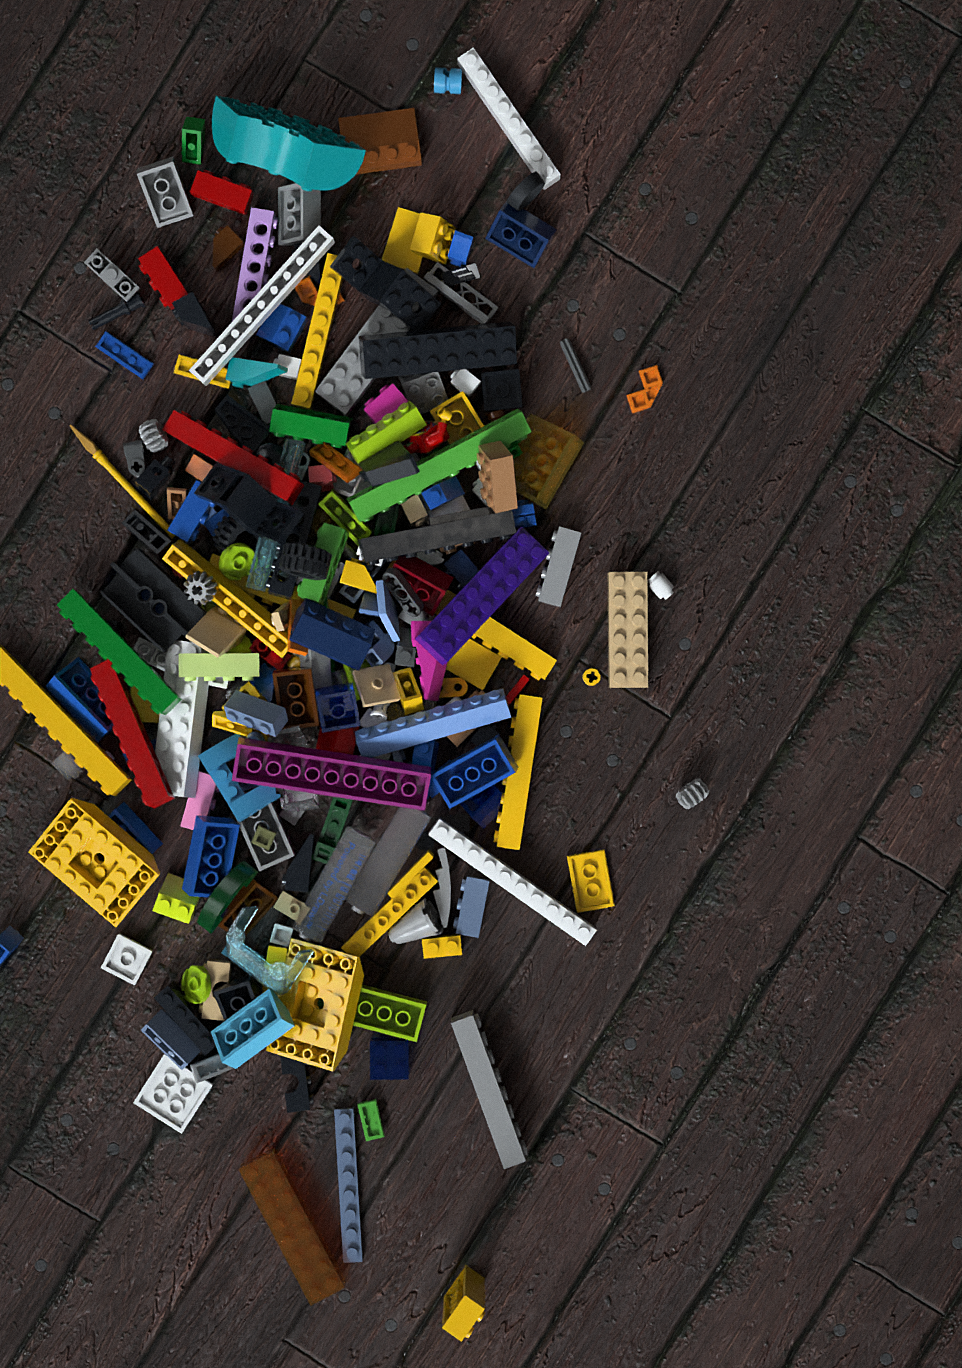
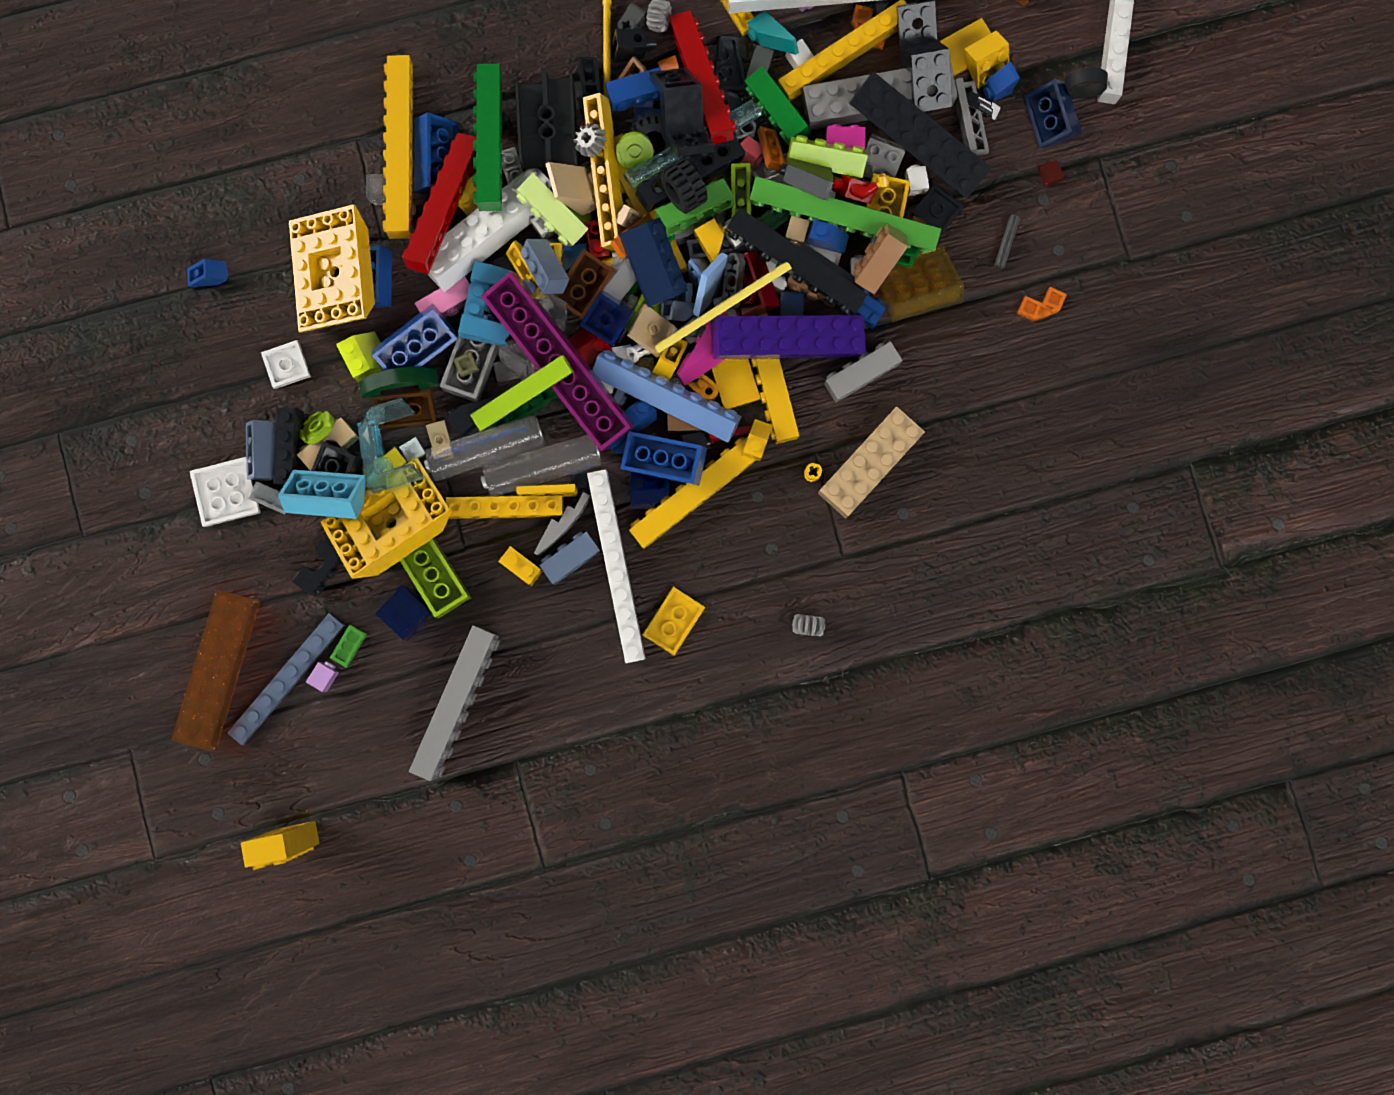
camera: 40 degrees right, 5 degrees down
(283, 328) = (821, 26): blue slope -> none
(327, 822) = (522, 393): none -> lime tile
(373, 1158) = (323, 676): none -> lavender brick
(415, 622) = (723, 306): none -> light yellow tile
(416, 924) = (517, 532): light grey cone -> none
(529, 693) = (757, 440): none -> yellow slope
(560, 280) = (1051, 172): none -> clear red tile
(660, 585) = (924, 453): white brick -> none

